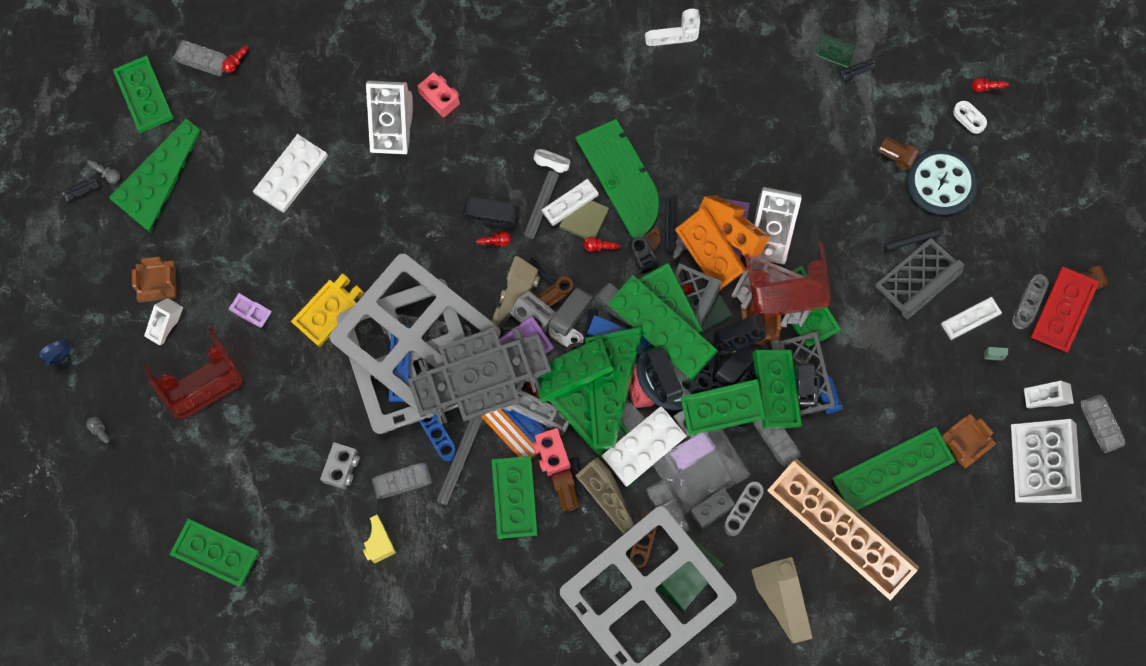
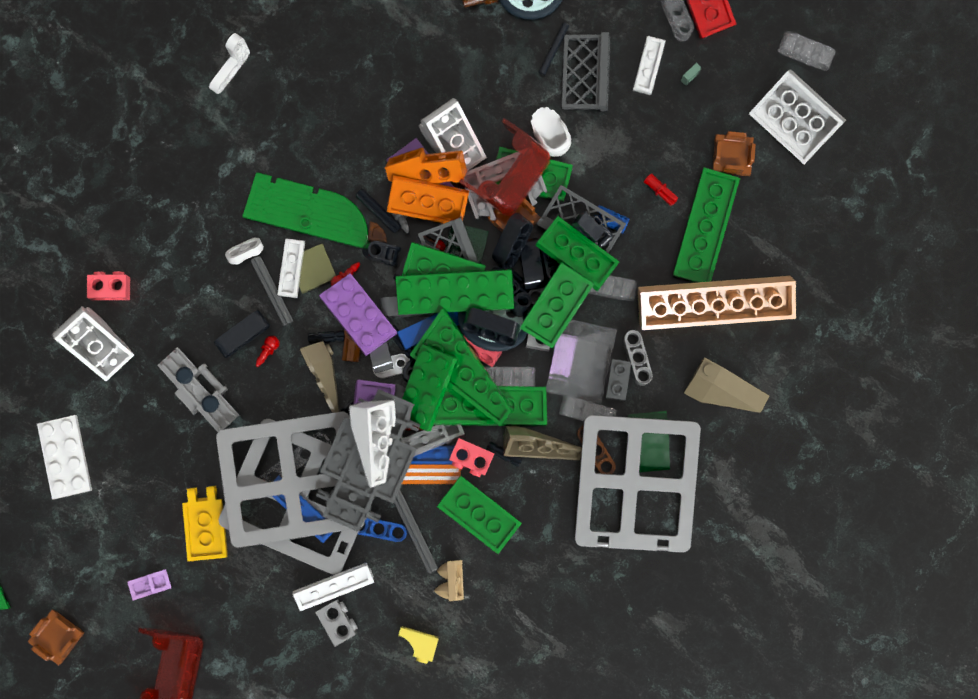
camera: 55 degrees left, 10 degrees up
(162, 320) = (94, 658): white arch -> none
(364, 438) = (333, 586): none -> white fence
(401, 480) = (390, 586): clear beam -> none
(415, 216) = (193, 394): none -> light grey piece
(442, 529) = (454, 587): none -> tan tile
(500, 357) = (372, 429): none -> white wedge
(530, 305) = (347, 372): light grey brick -> none
(565, 486) = (505, 471): reddish brown piece -> none
(580, 276) = (358, 314): none -> medium lavender plate
(643, 446) = (529, 387): white plate -> none
(849, 291) = (551, 131): none -> white hair
(887, 410) = (661, 189): none -> red axle
(1049, 394) = (753, 68): white arch -> none

